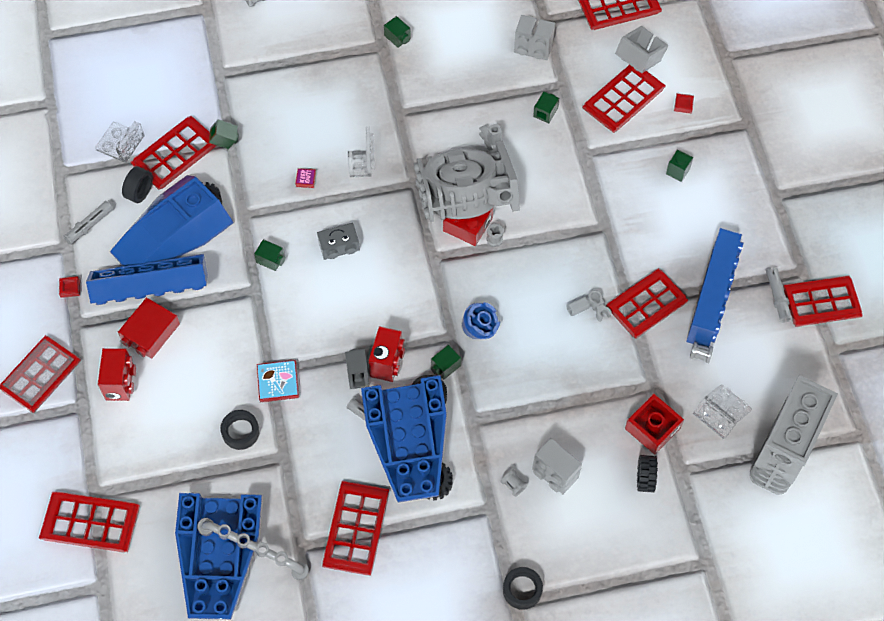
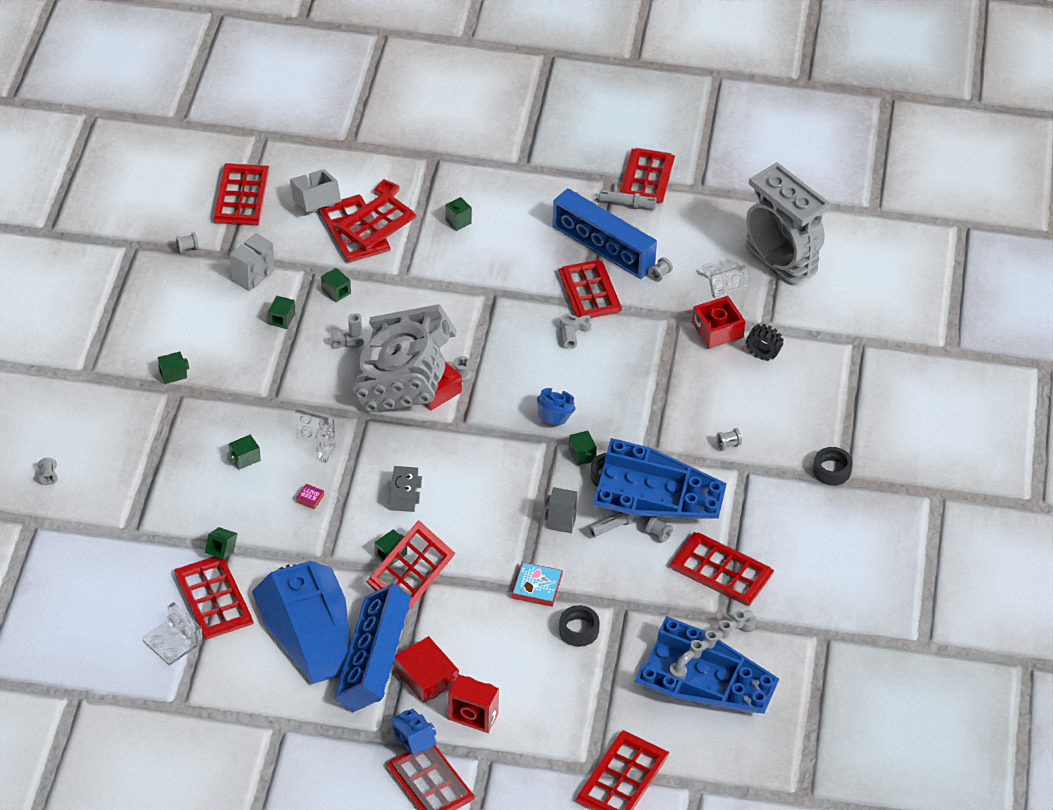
camera: 70 degrees left, 15 degrees down
(69, 287) = (335, 730): red tile -> none
(72, 236) = (267, 698): light grey pin -> none
(72, 340) = (413, 731): none -> blue brick
(137, 184) = (246, 630): black tyre -> none
(285, 282) = (433, 541): none -> piece
(329, 114) = (244, 452): none -> dark green brick
(374, 462) = (659, 528): none -> light grey bush
(386, 354) = (554, 473): red brick -> none
(495, 81) = (281, 312): none -> dark green brick
(556, 466) = (731, 398): light grey piece -> none
(635, 107) = (376, 221): none -> red piece

